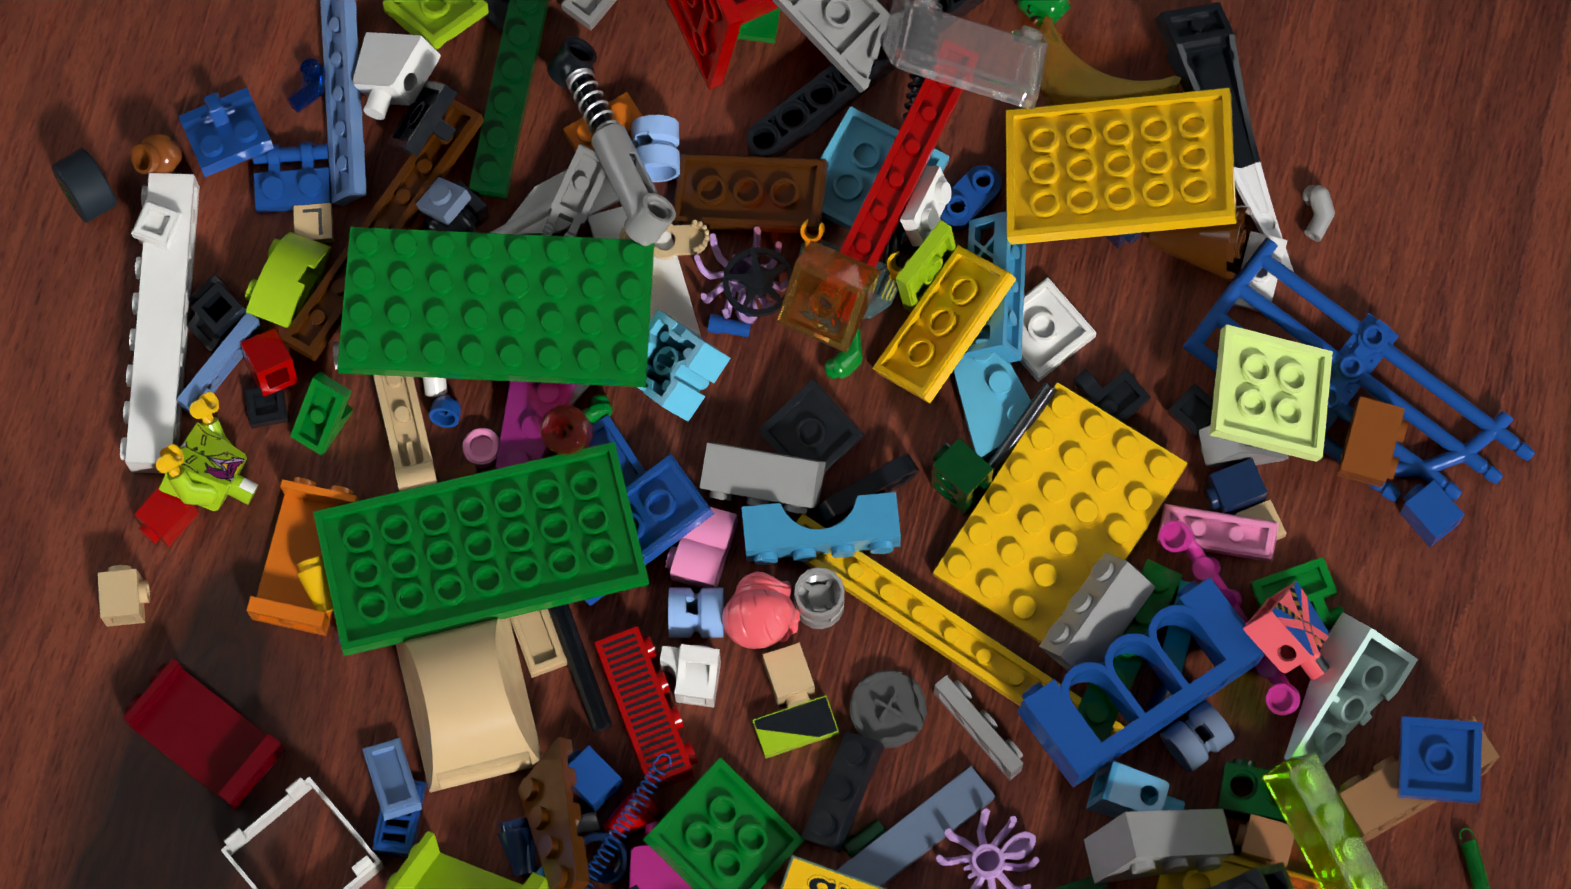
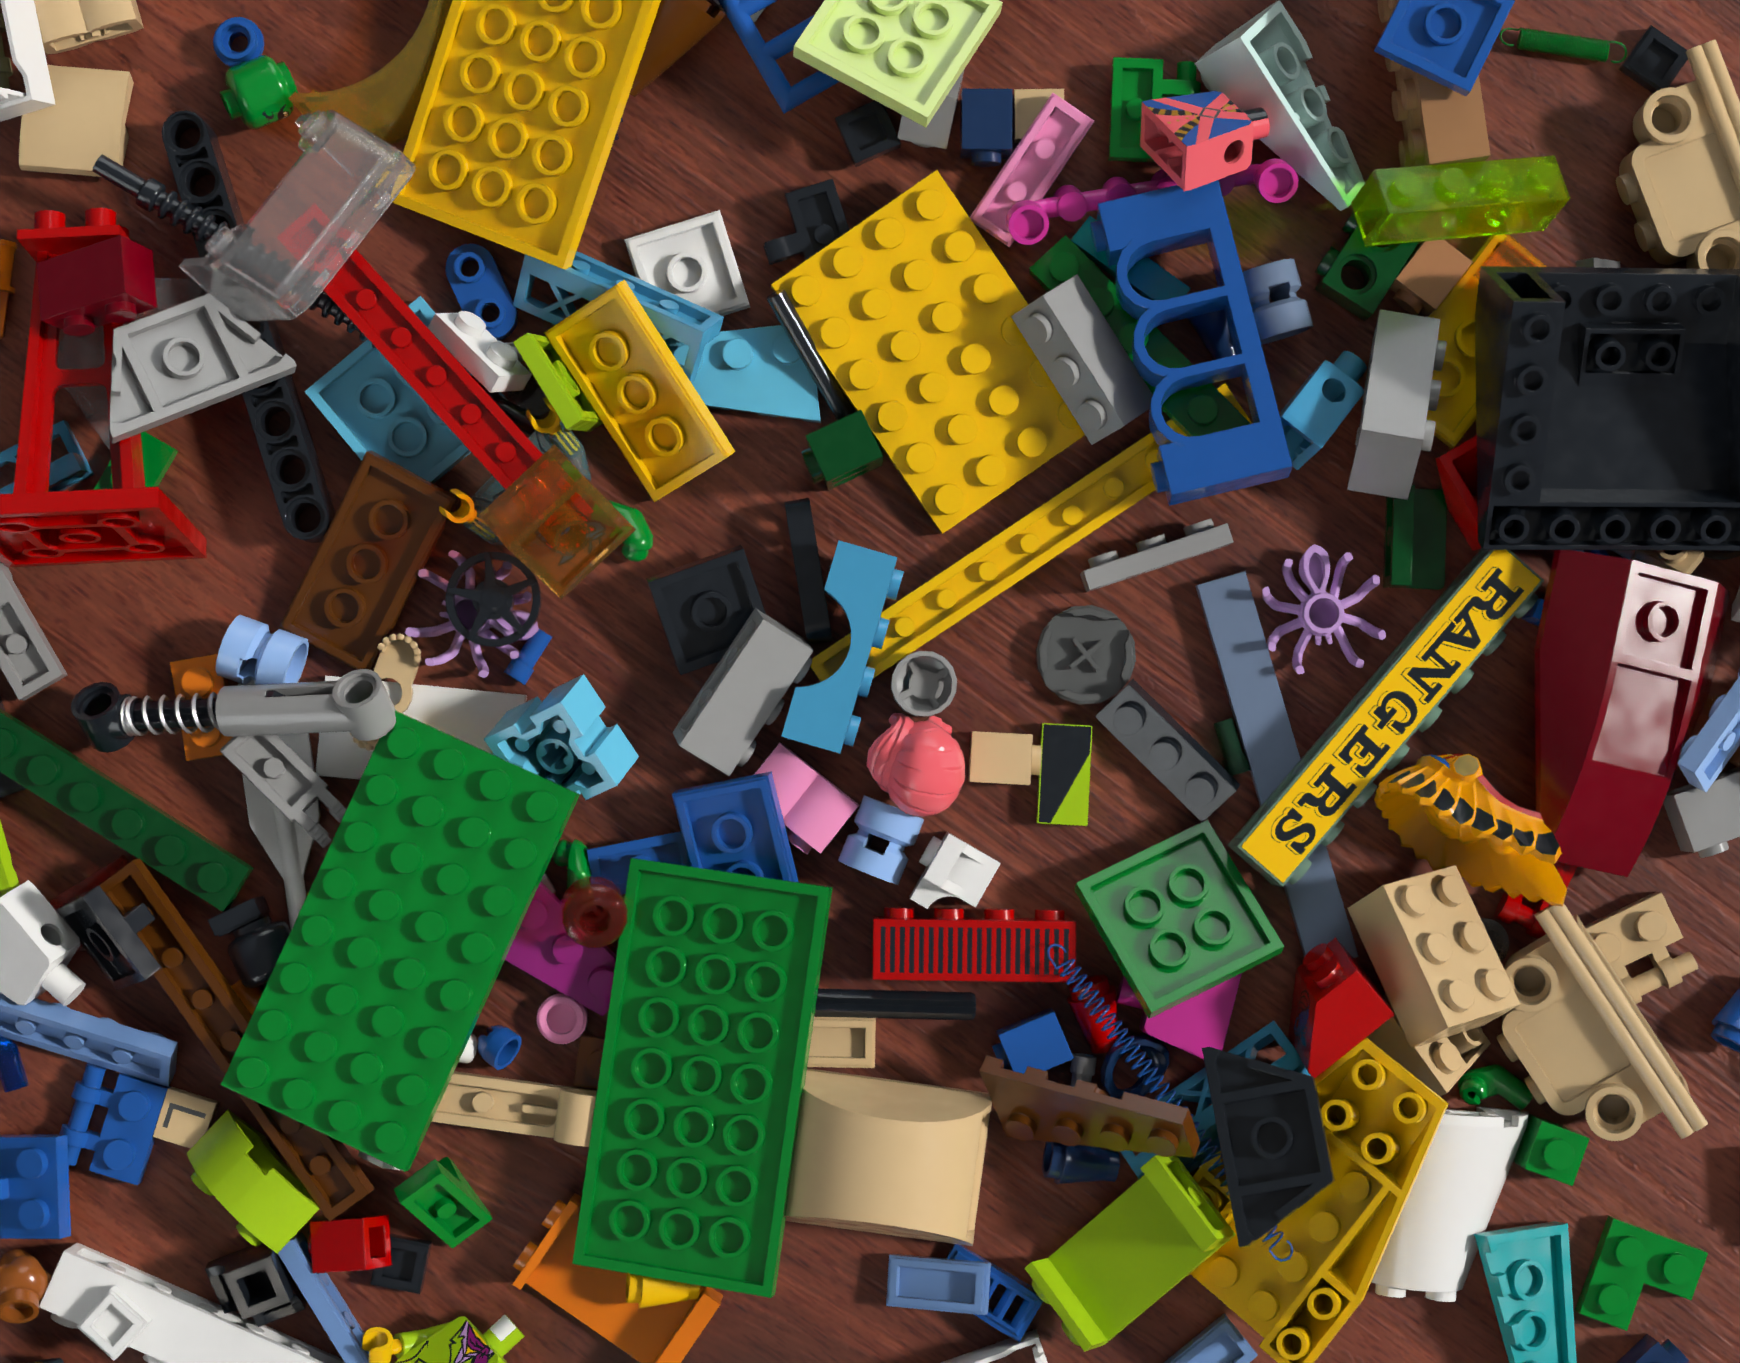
camera: 70 degrees left, 15 degrees up
(443, 201) = (230, 952): sand blue plate -> none

